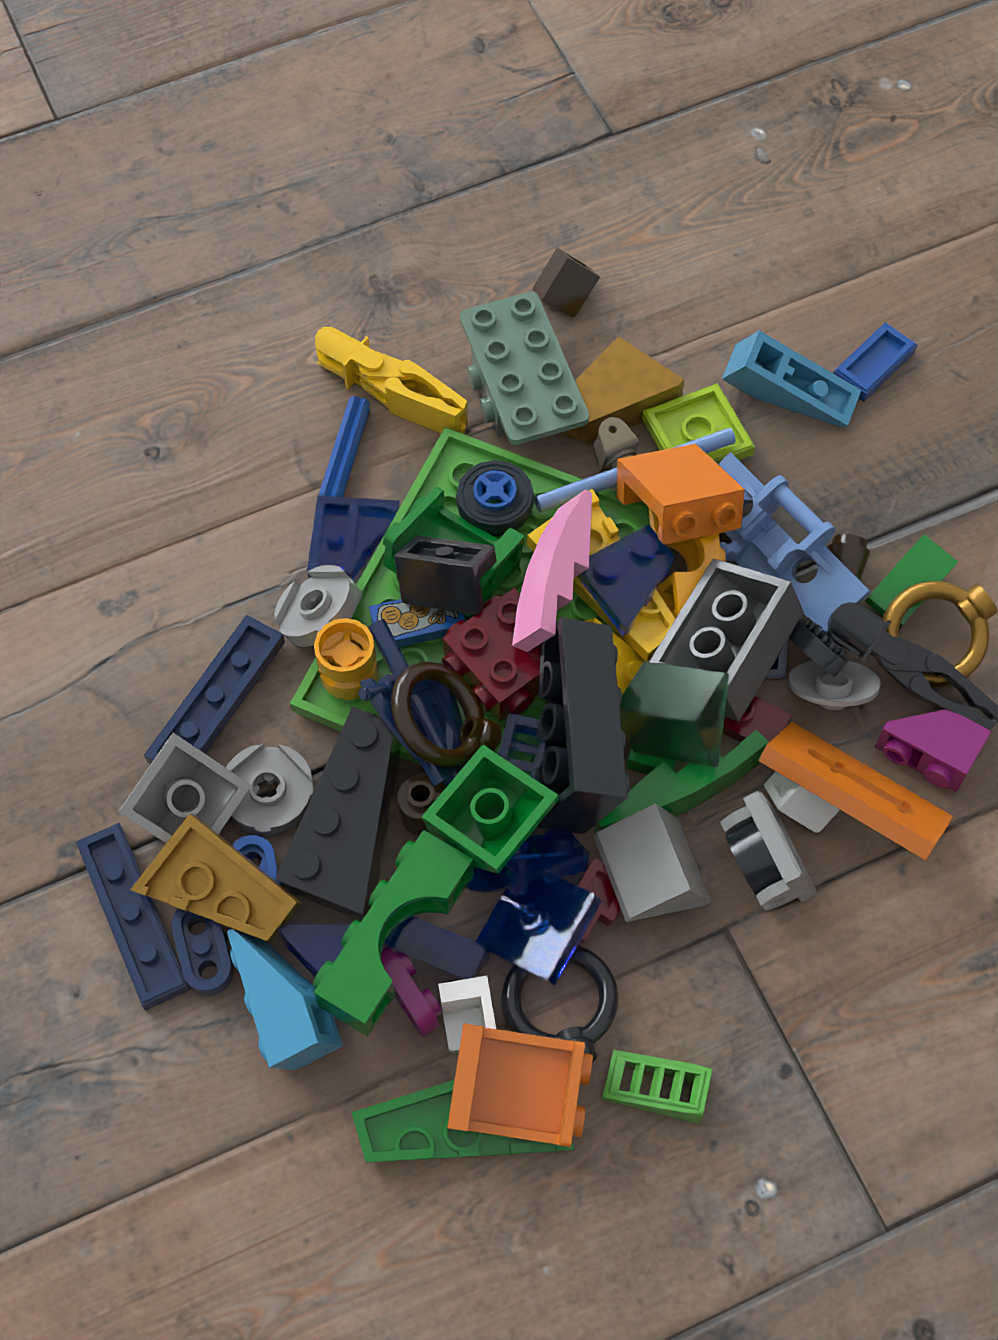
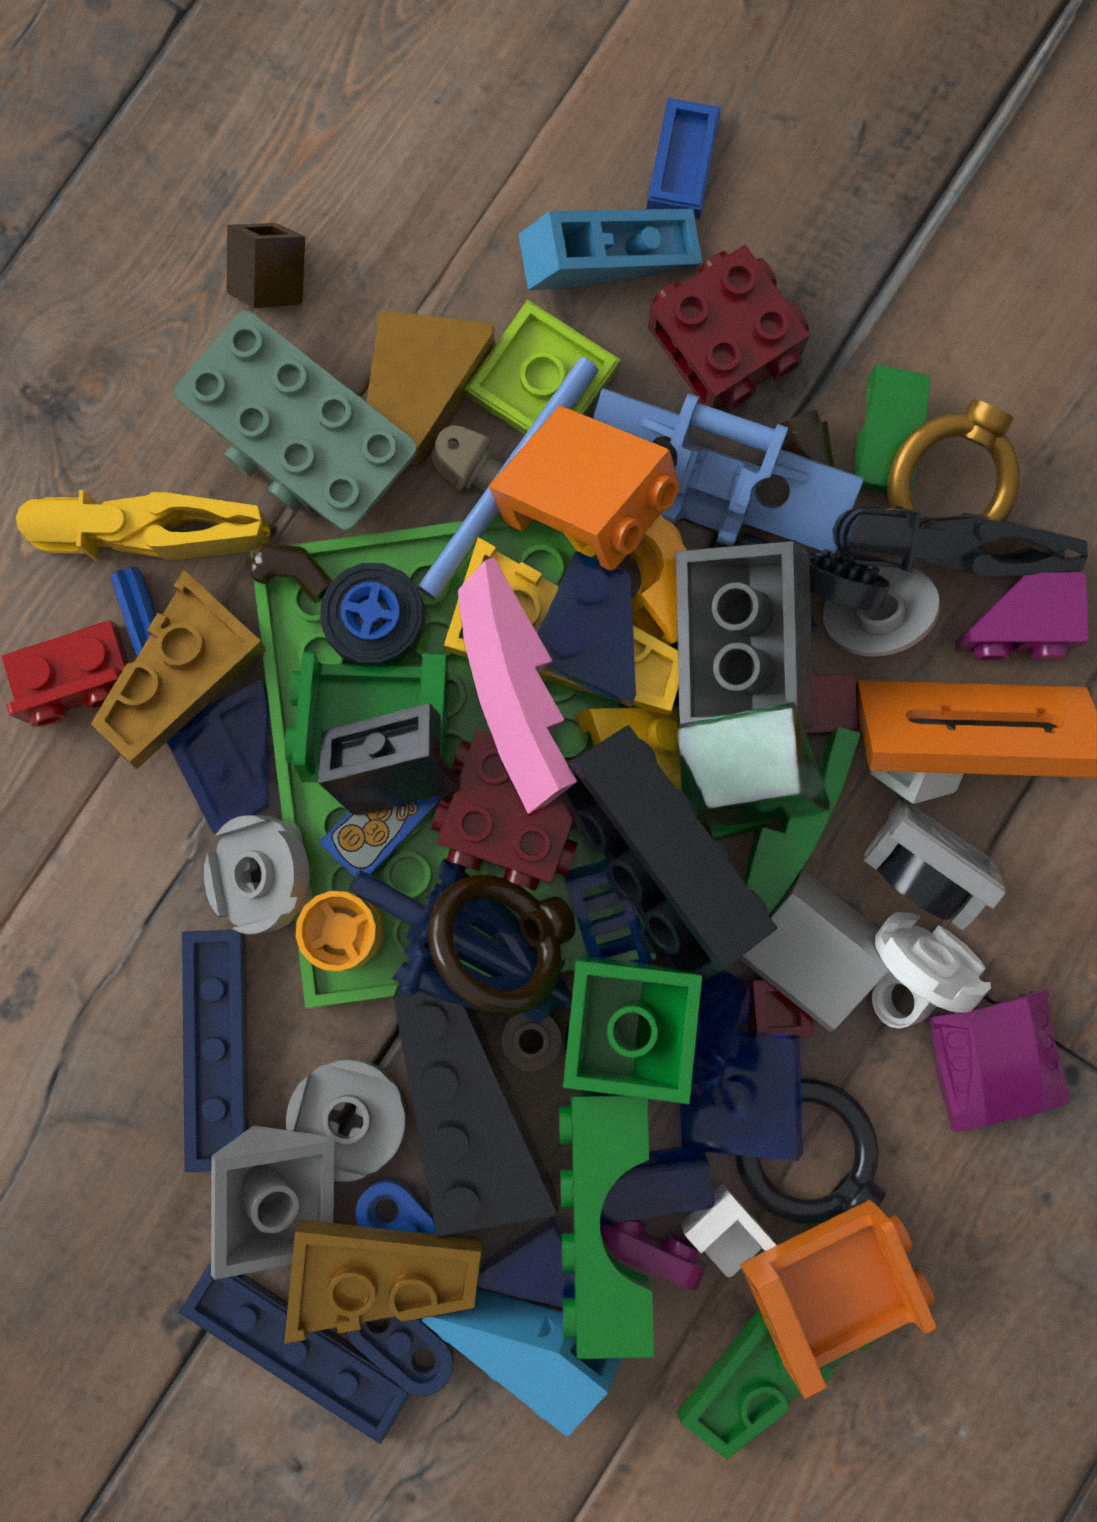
camera: 30 degrees left, 20 degrees up
(284, 438) = (64, 673): none -> red bracket
(357, 465) = (181, 668): none -> pearl gold wing
(464, 441) = (289, 561): none -> dark brown arm
(661, 1067) = (993, 1194): bright green slope -> none
(718, 918) = (931, 965): none -> white tile
(737, 1015) = (998, 1061): none -> magenta slope
(840, 466) = (729, 328): none -> dark red brick

